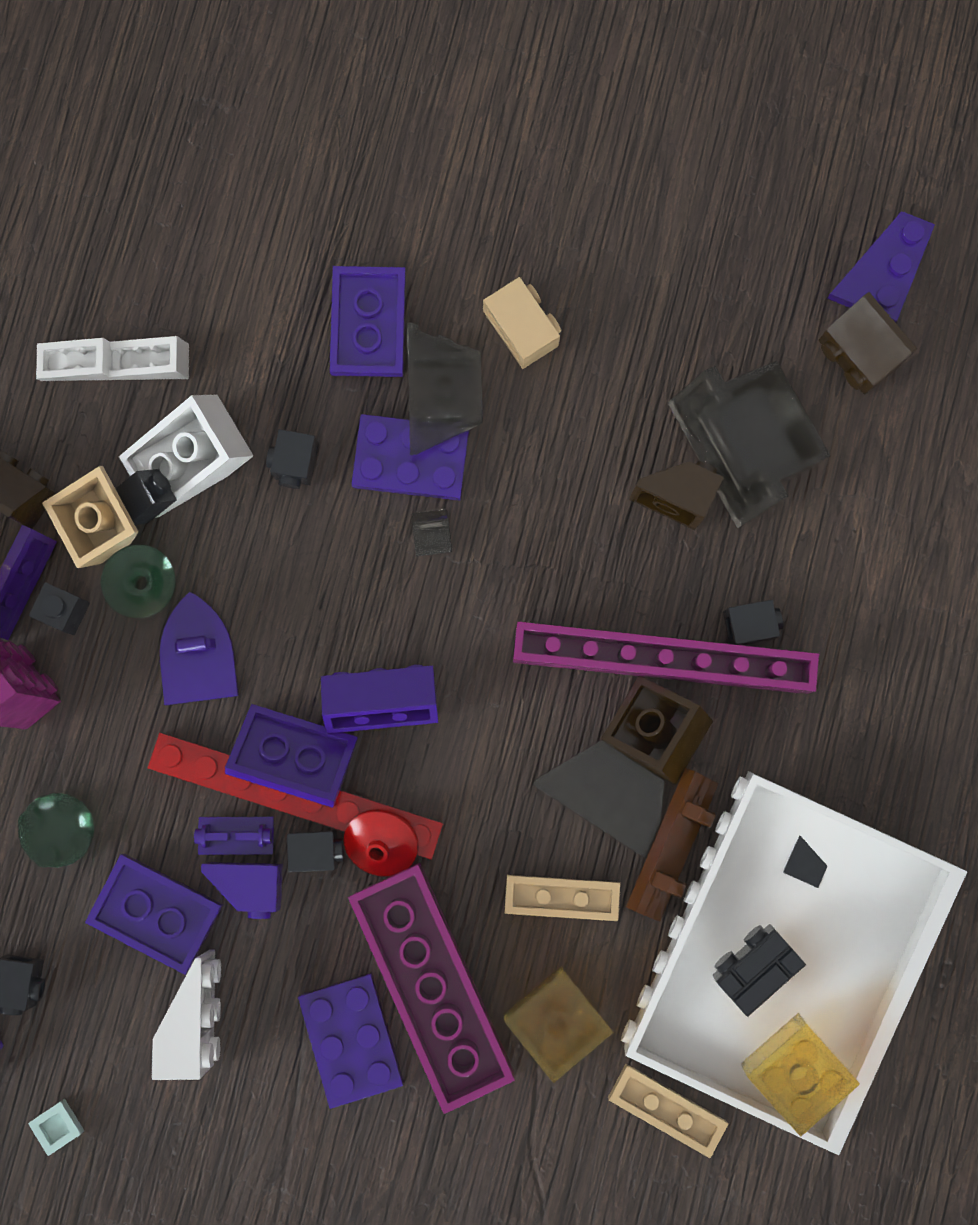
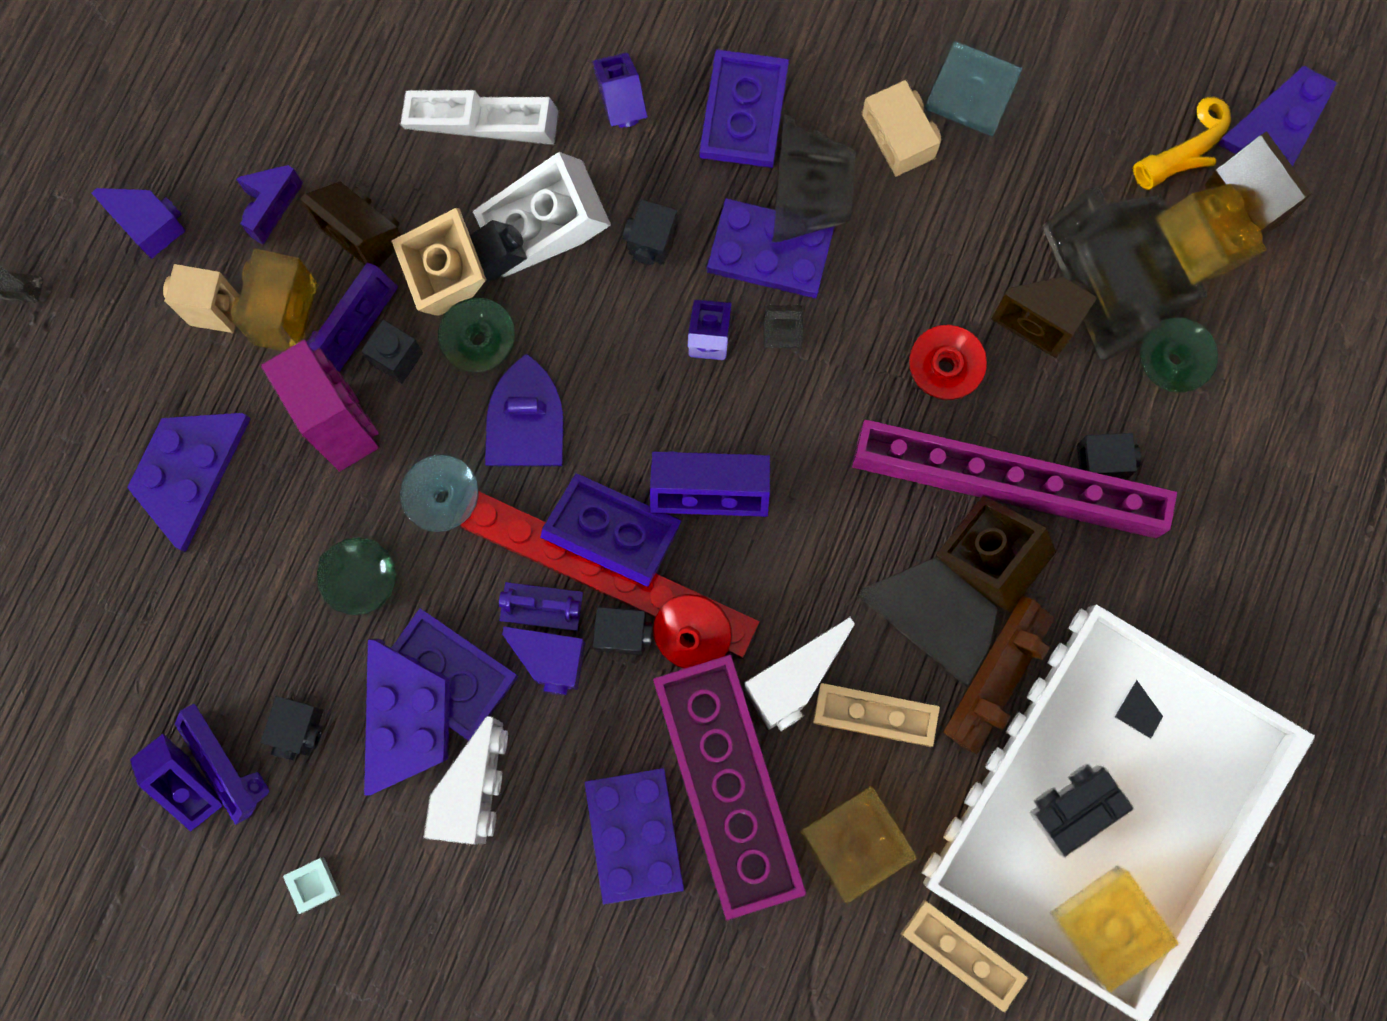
camera: 10 degrees right, 5 degrees down
(106, 738) = (425, 482): none -> clear light blue dish
(119, 961) = (403, 717): none -> dark purple wing
(244, 318) = (620, 90): none -> dark purple slope
(360, 545) = (709, 330): none -> dark purple slope
(476, 885) = (789, 684): none -> white slope
(587, 272) = (973, 88): none -> clear light blue tile
(597, 532) = (951, 345): none -> red dish
(798, 314) = (1155, 169): none -> yellow plant
(826, 510) = (1193, 346): none -> clear green dish
(827, 394) = (1211, 233): none -> clear yellow brick

